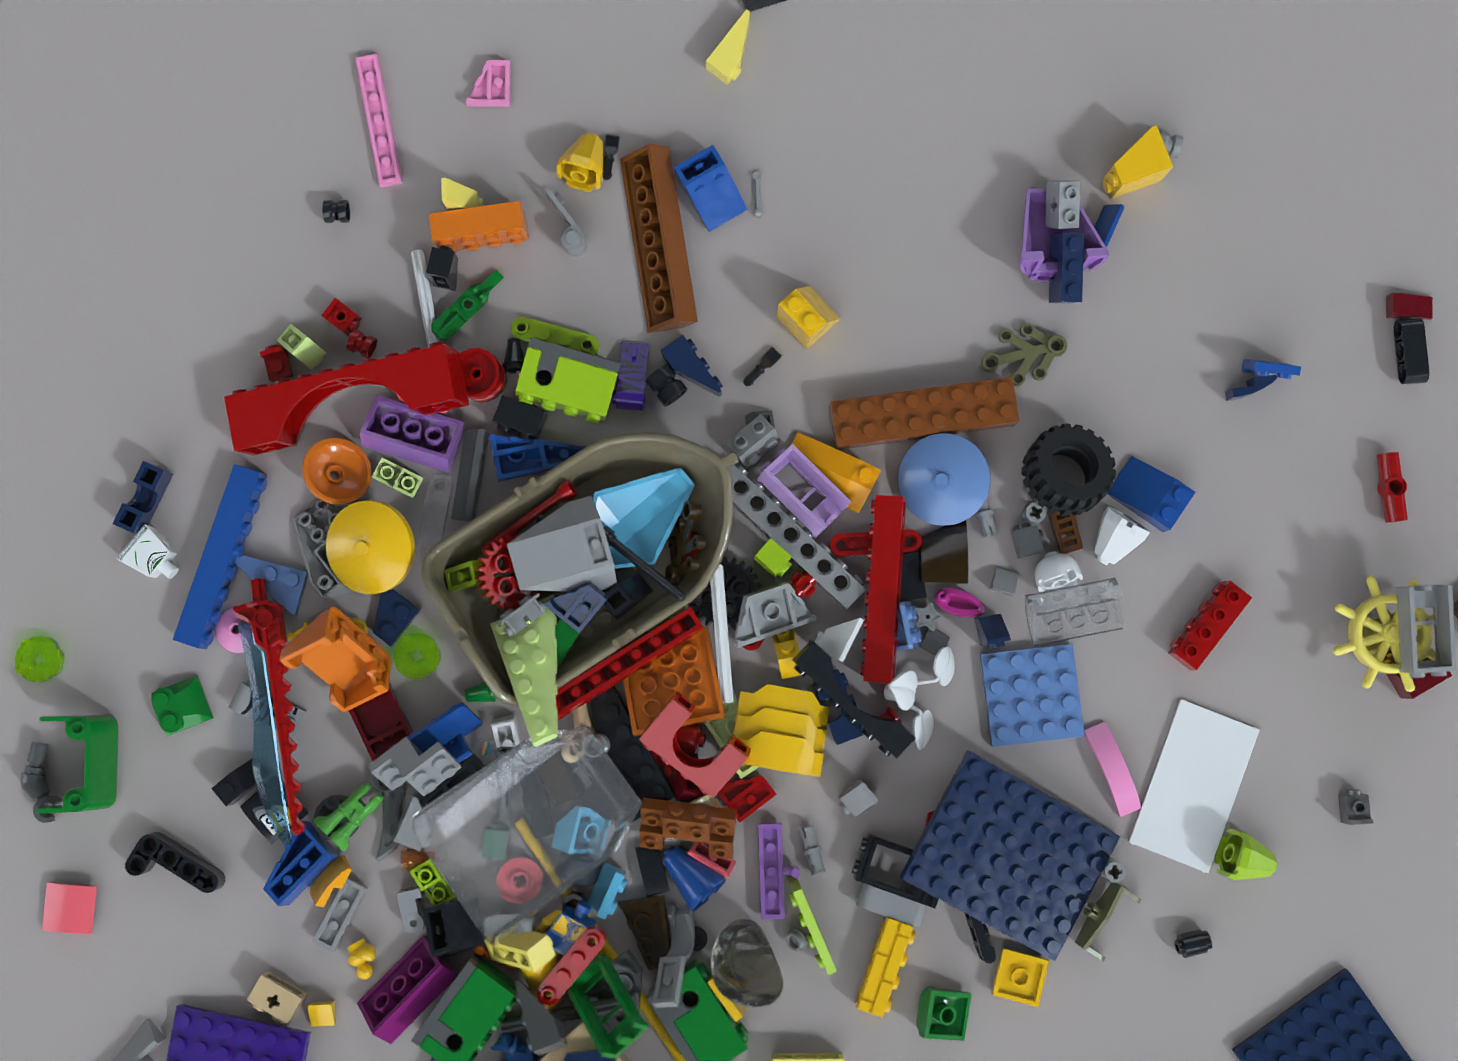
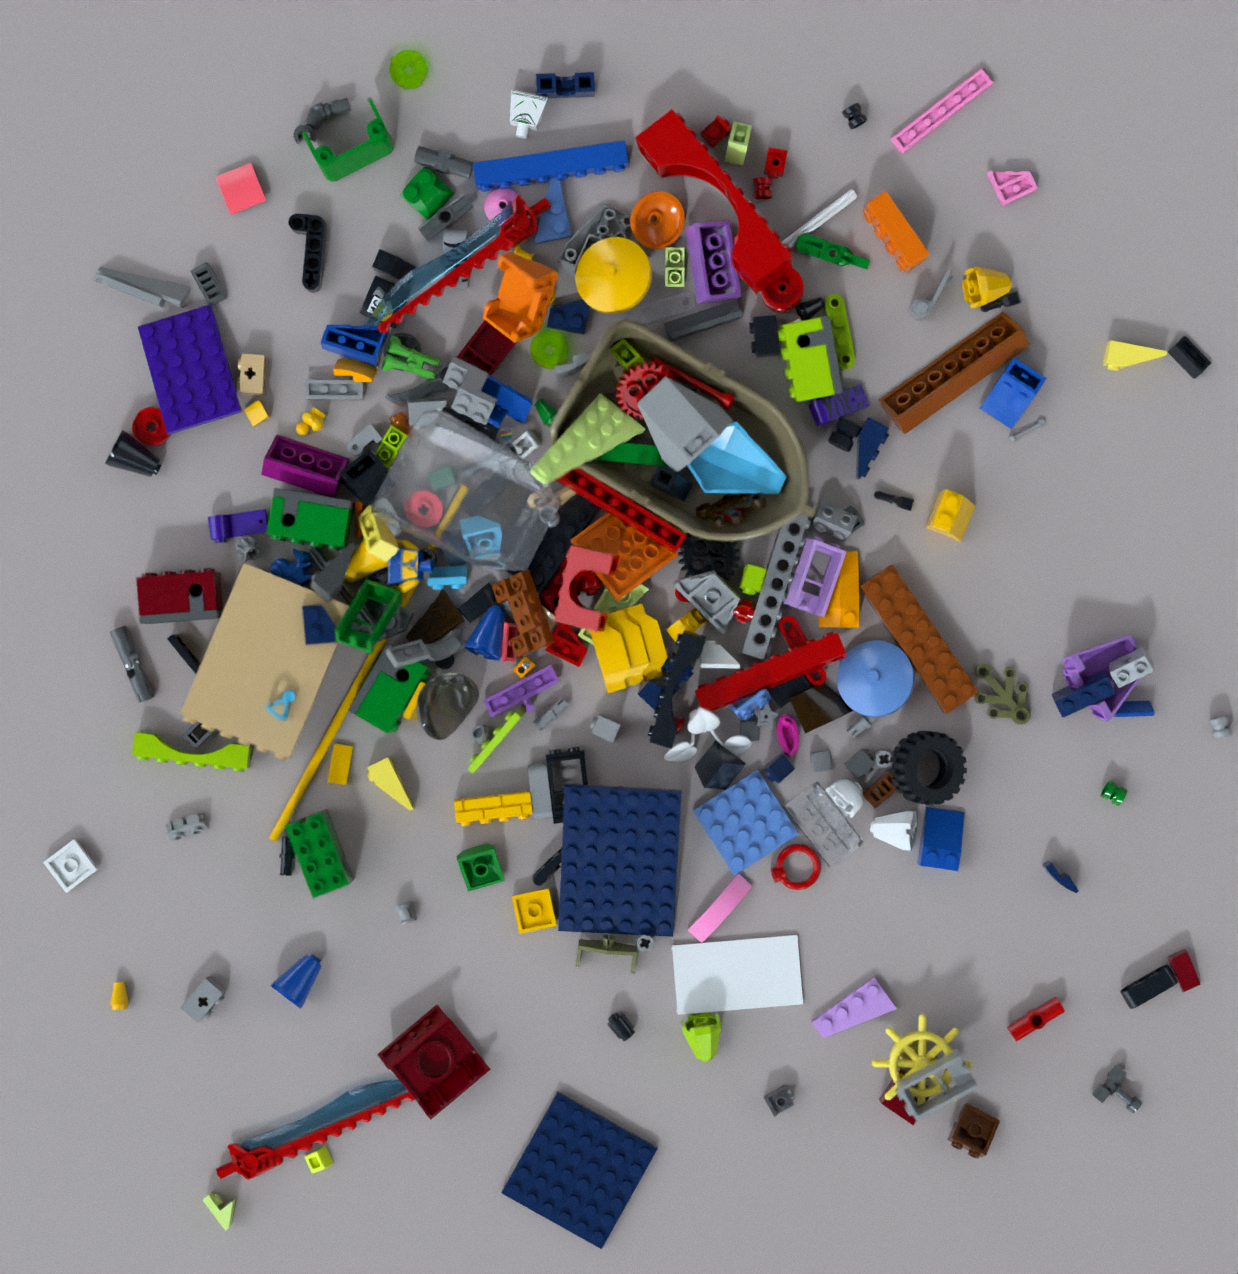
camera: 70 degrees right, 5 degrees up
(133, 996) = (206, 266): none -> dark grey slope
(157, 670) = (443, 162): none -> dark grey piece
(220, 713) = (435, 225): none -> dark grey piece
(443, 268) = (850, 221): black slope -> none
(448, 643) = (568, 369): none -> light grey slope
(458, 196) = (910, 207): light yellow slope -> none
(514, 619) = (612, 409): light grey hinge -> none
(526, 457) = (737, 355): blue wedge -> none
(571, 965) = (384, 577): red plate -> none
(578, 605) = (646, 451): dark blue wing -> none
(642, 565) = (699, 484): black piece -> none
(721, 635) = (676, 568): white axle -> none
(746, 849) = (526, 663): none -> light orange piece
(959, 696) = (718, 767): none -> black slope
(1107, 686) = (778, 872): none -> red piece
(1140, 166) = (1190, 712): yellow slope -> none
(1187, 287) = (1114, 793): none -> green wheel
(1209, 625) = (863, 930): red brick -> none
(1264, 368) = (1078, 878): blue plate -> none
(1290, 673) = (857, 1007): none -> lavender wing

